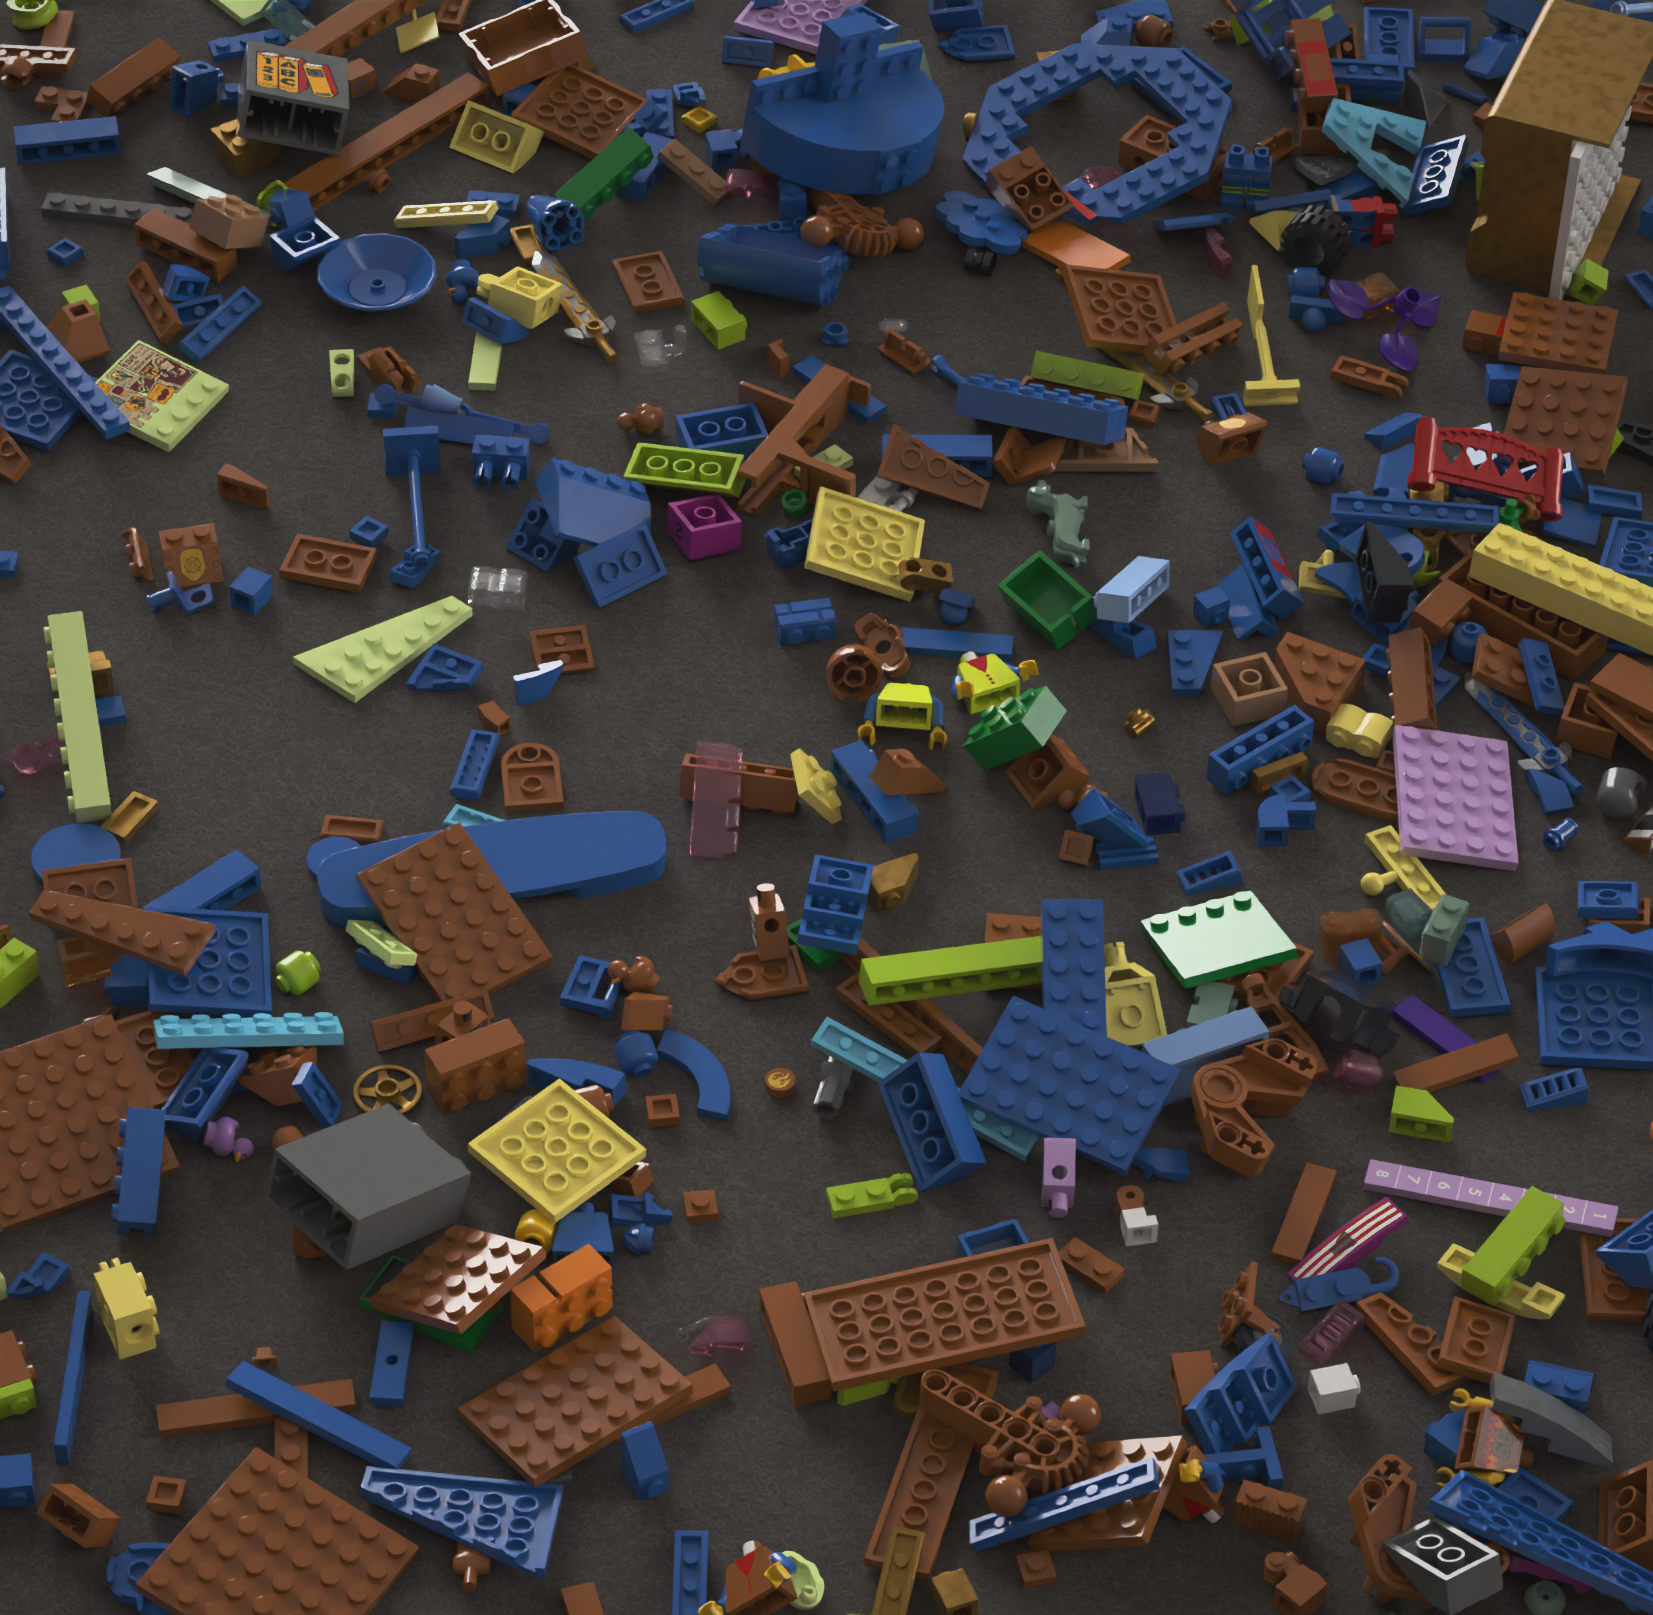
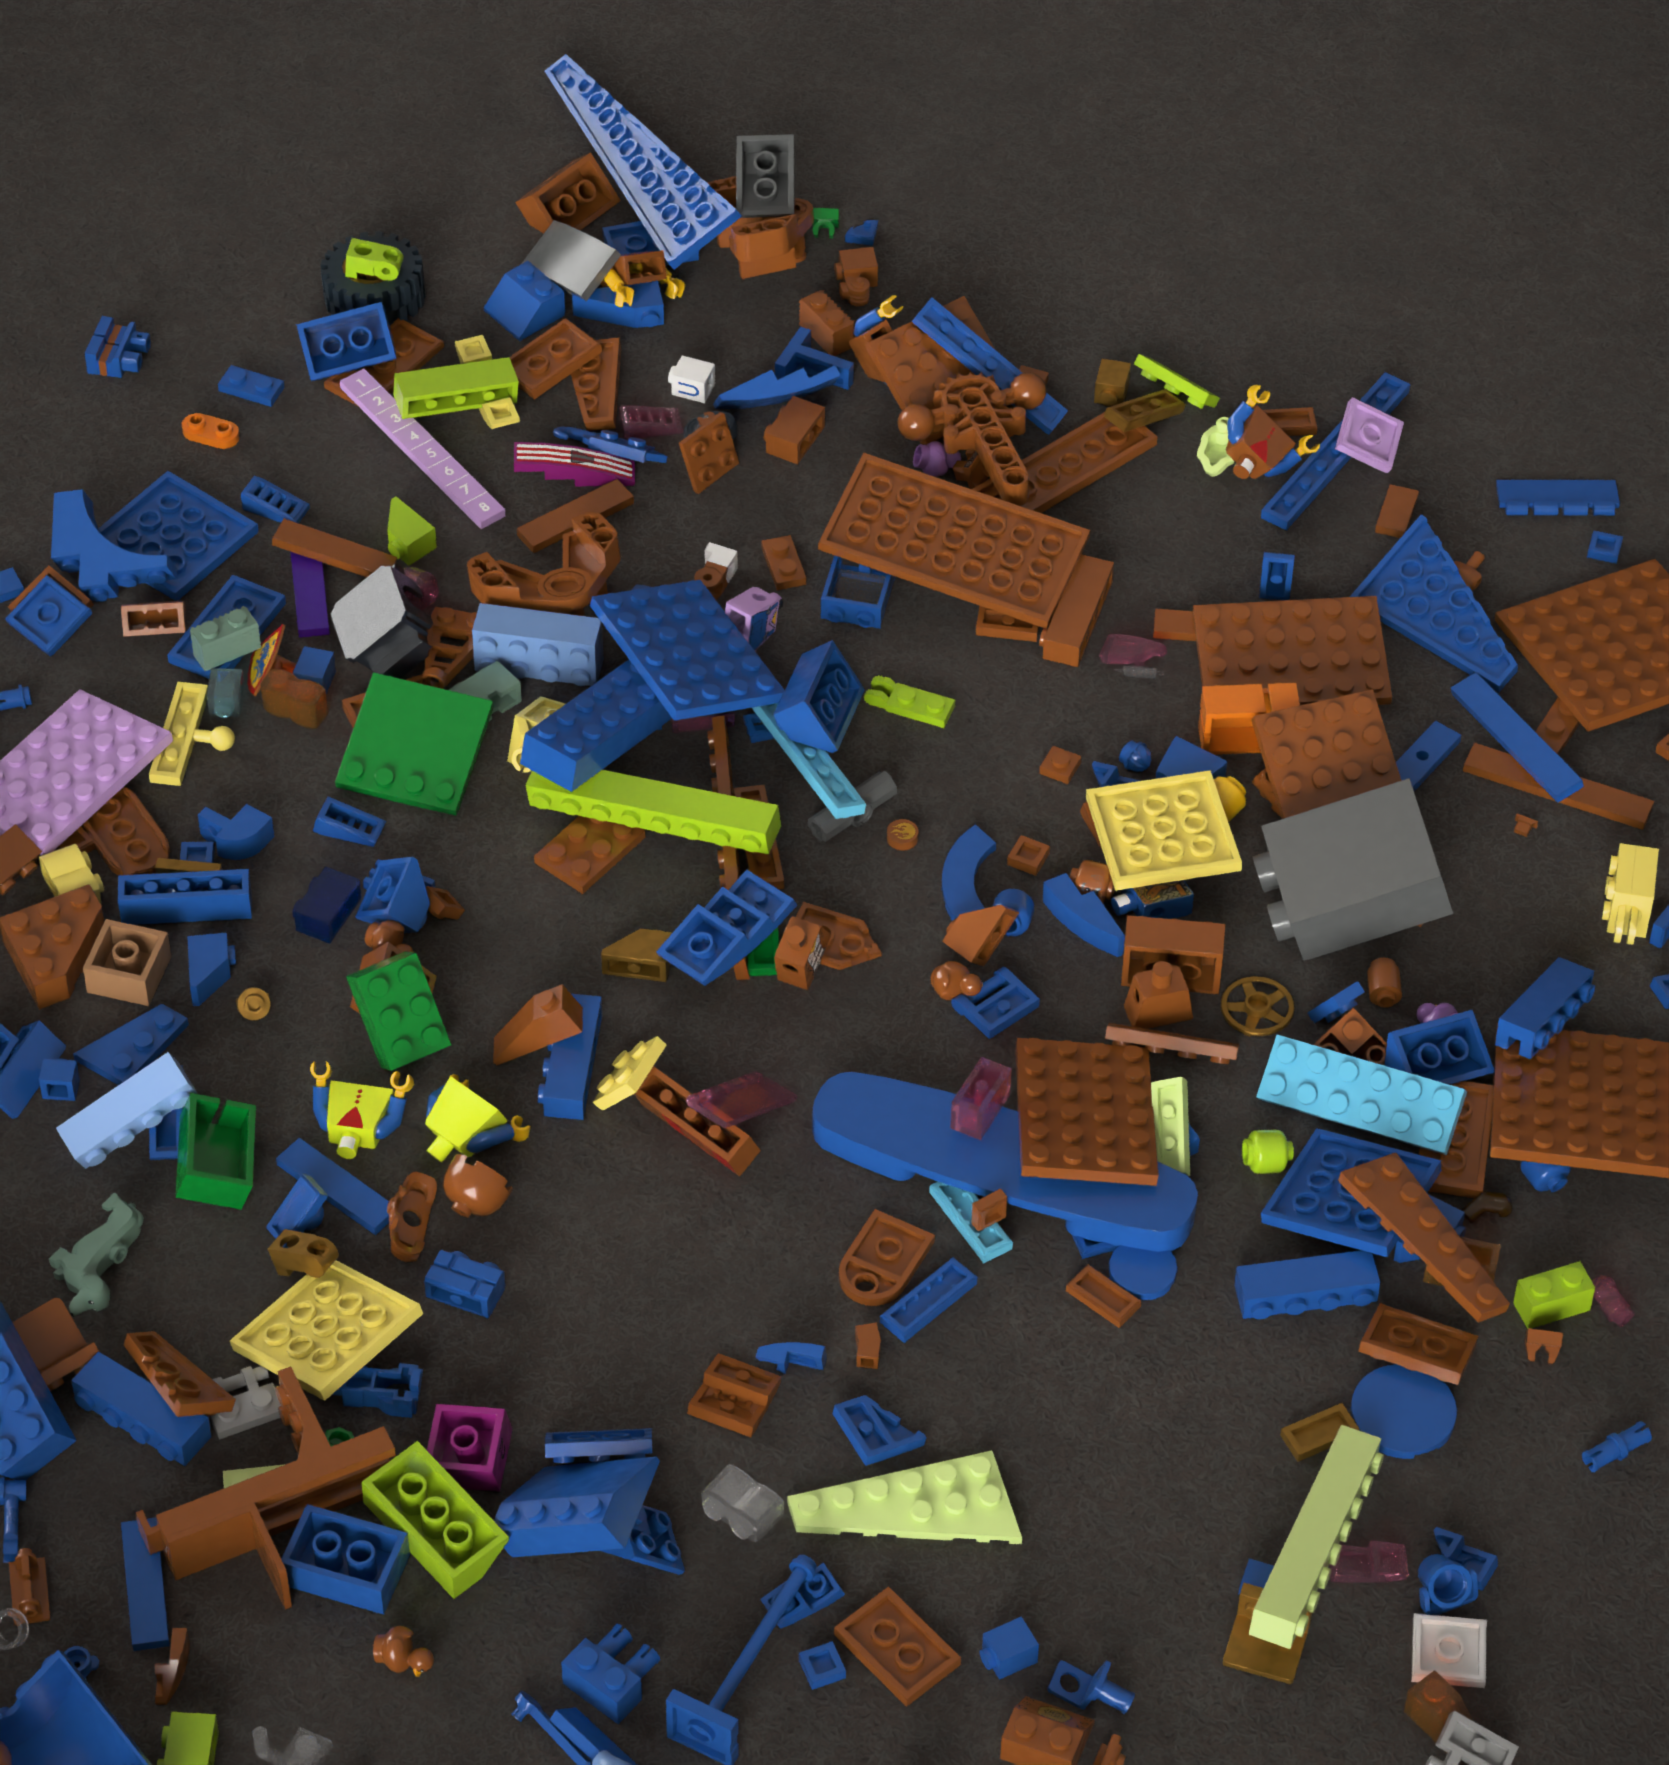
camera: 145 degrees left, 5 degrees up
(471, 812) = (989, 1210): none -> dark orange tile
(531, 860) = (980, 1098): none -> clear pink brick
(1198, 724) = (209, 964): none -> blue slope

